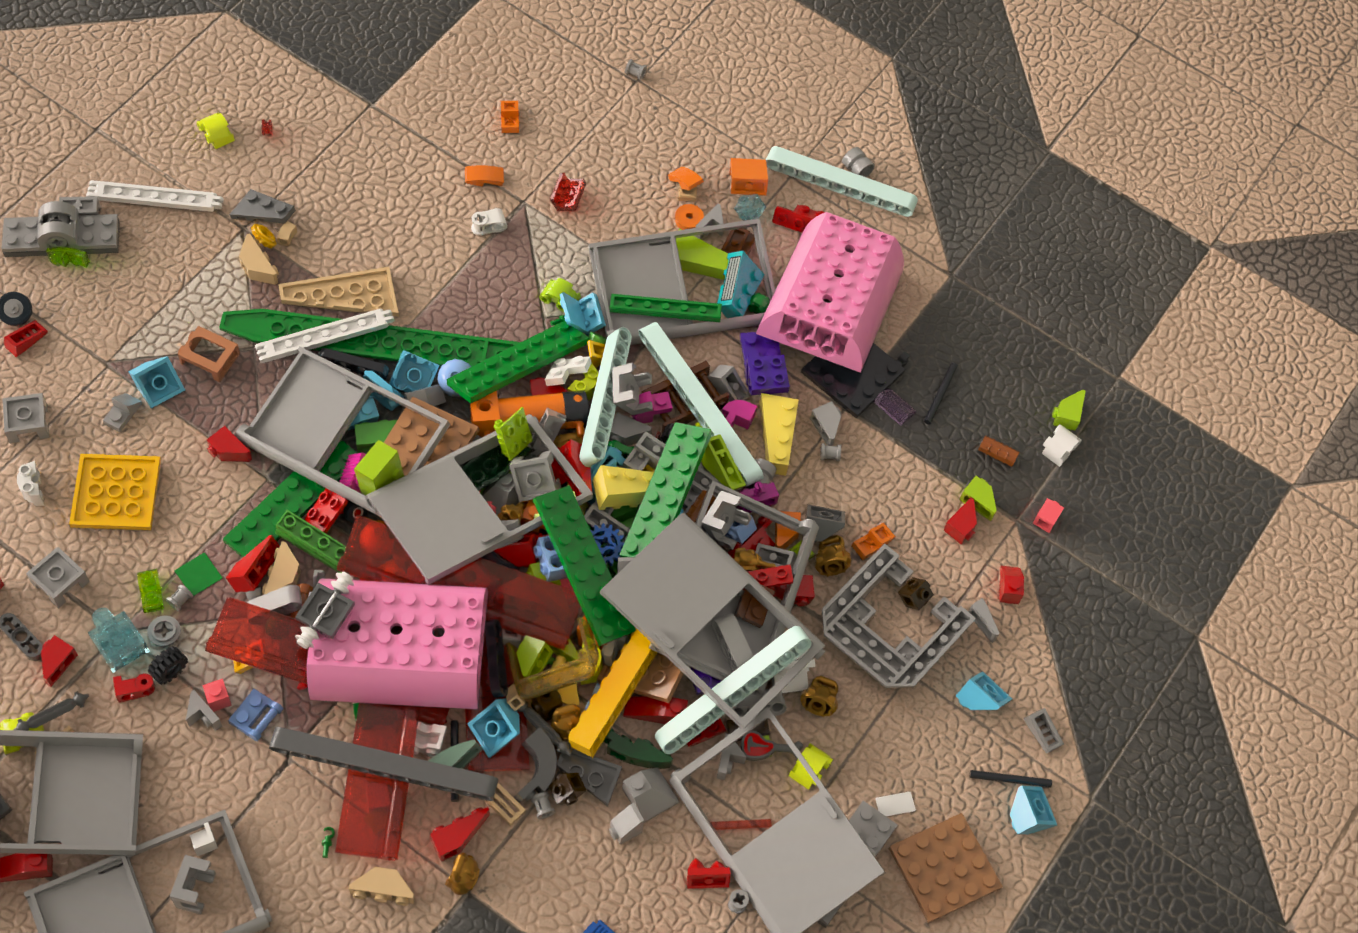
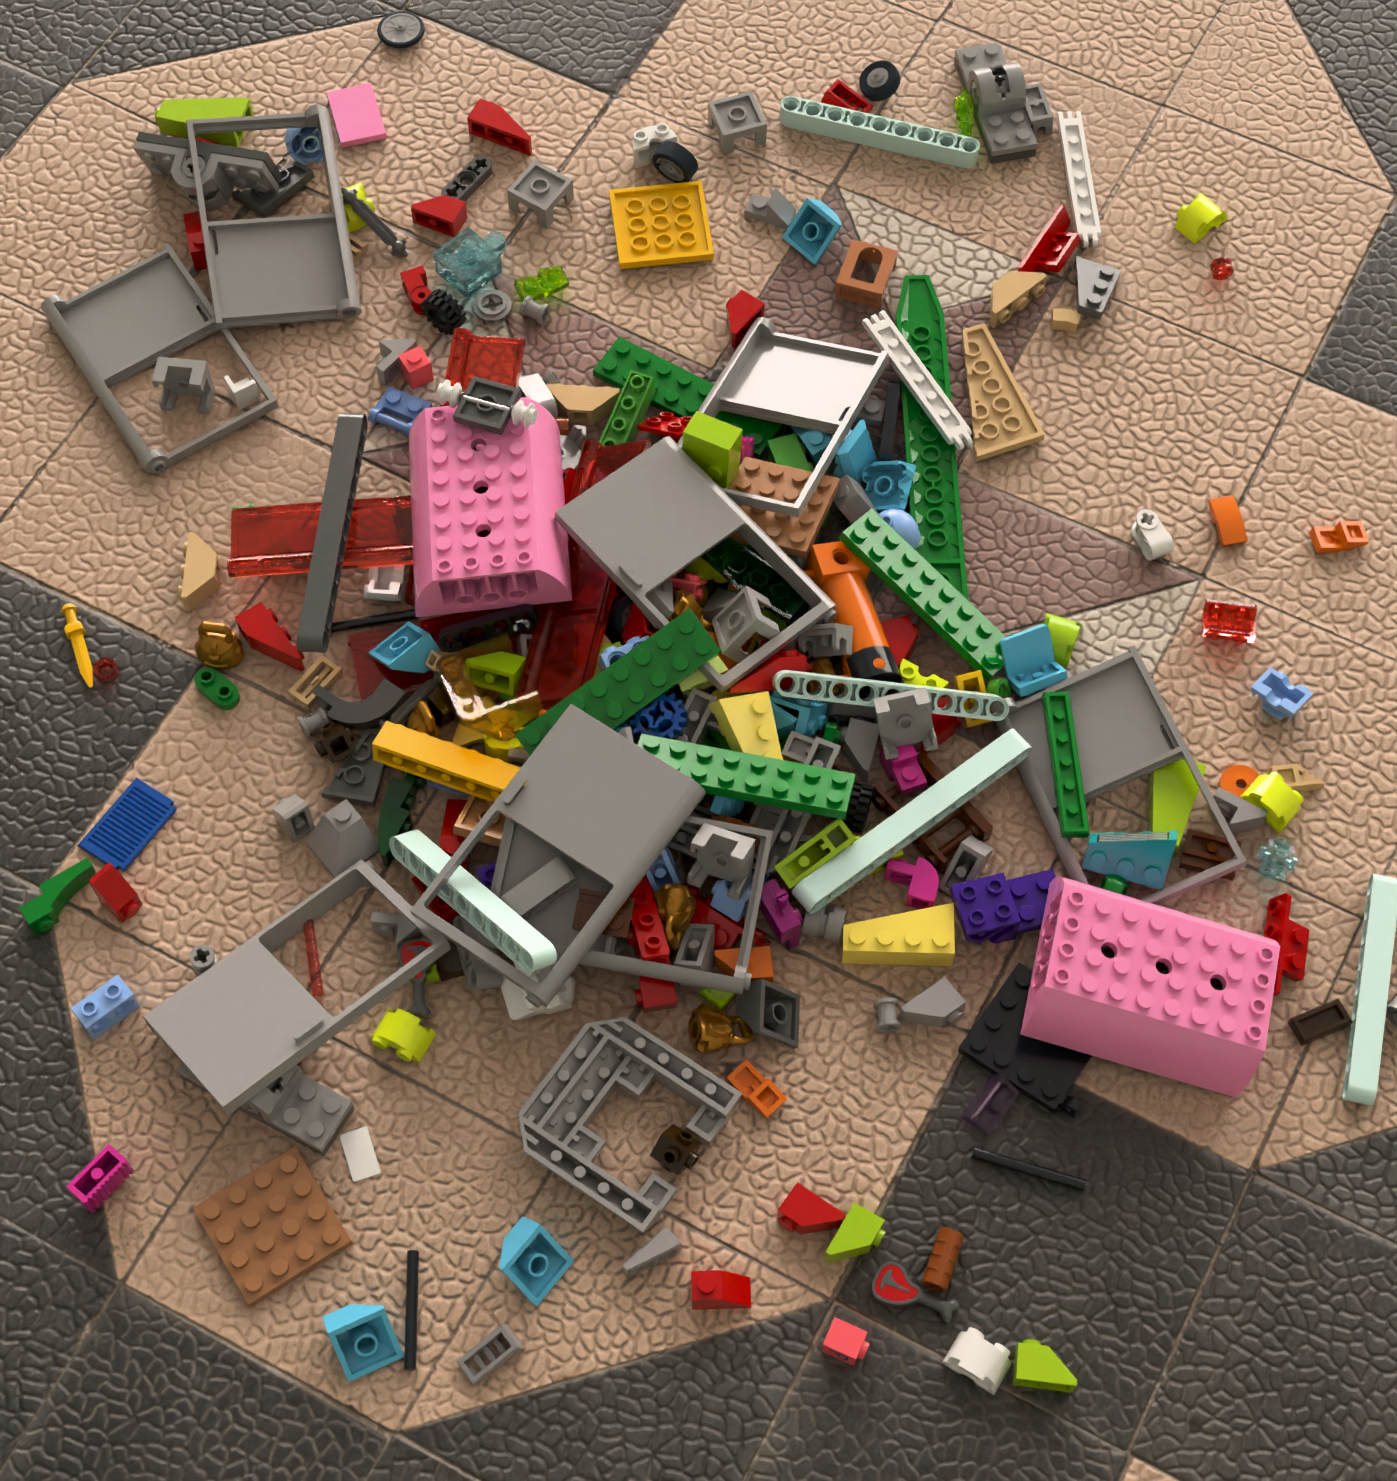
camera: 90 degrees right, 0 degrees up
(58, 468) = (675, 162): none -> black wheel
(66, 328) = (879, 132): none -> light aqua beam
(198, 574) = (572, 326): green sticker -> none
(220, 225) = (1052, 246): none -> red bracket
(252, 567) = (584, 369): red slope -> none
(264, 235) = (1056, 285): yellow gear -> none
(458, 755) = (356, 610): sand green slope -> none
(496, 881) = (215, 687): none -> green plate
(513, 434) = (796, 586): lime hinge -> none
(563, 367) = (935, 651): white plate -> none
(631, 176) = (1279, 696): none -> light blue cylinder
(687, 178) = (1302, 767): orange slope -> none
(705, 199) = (1276, 798): none -> neon yellow cylinder
(714, 877) = (234, 911): red tile -> none
(748, 176) = (1329, 846): orange panel -> none
(819, 698) = (497, 1034): pearl gold piece -> none
(858, 212) = (1320, 1022): none -> dark brown tile
(1013, 483) = (894, 1289): none -> dark grey piece

